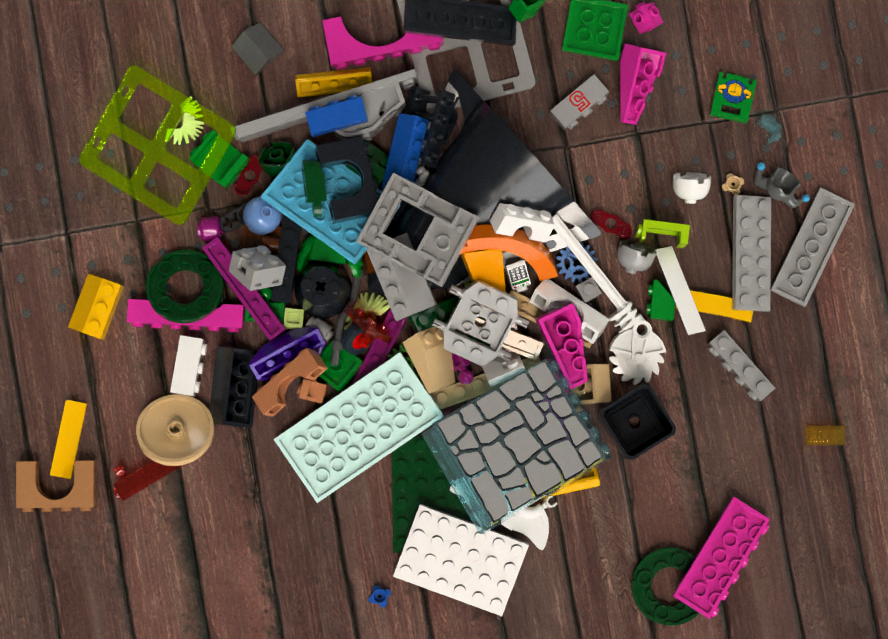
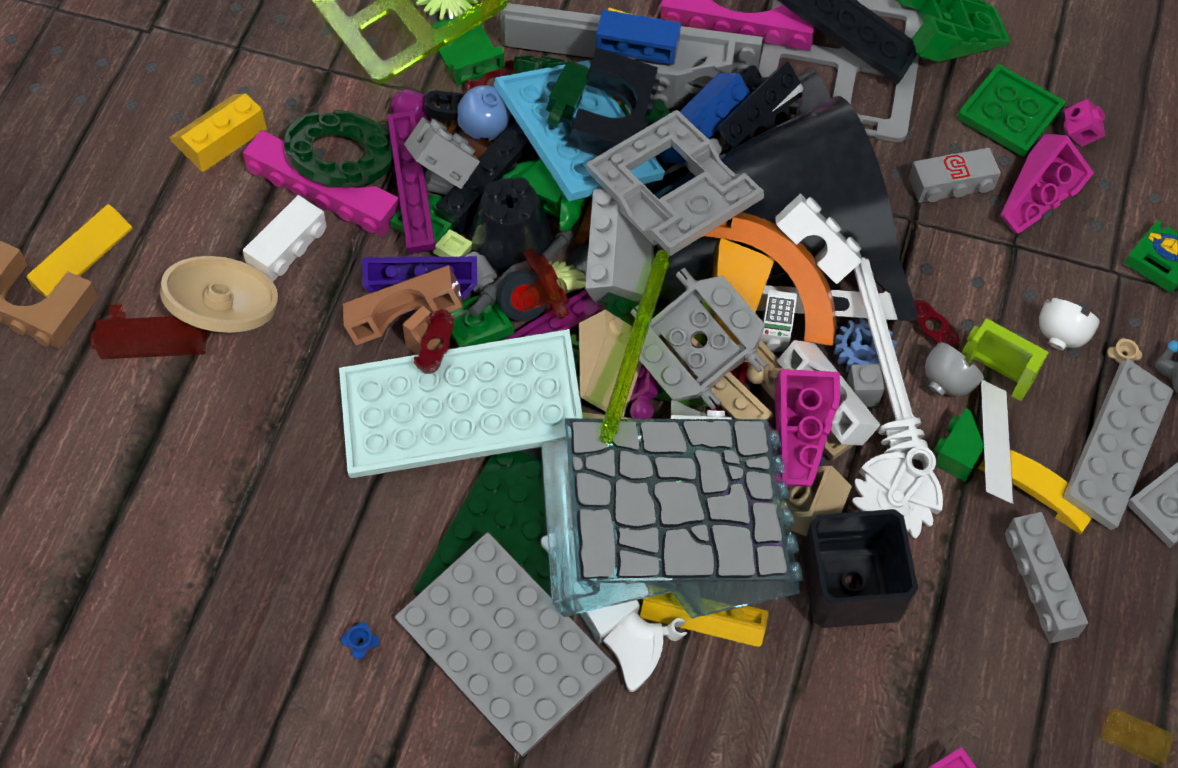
camera: 20 degrees right, 25 degrees down
(233, 388) = (315, 298): black slope -> none
(321, 386) = (440, 327): none -> dark red piece
(448, 354) = (634, 347): none -> clear neon green piece
(528, 314) = (767, 374): none -> tan bar

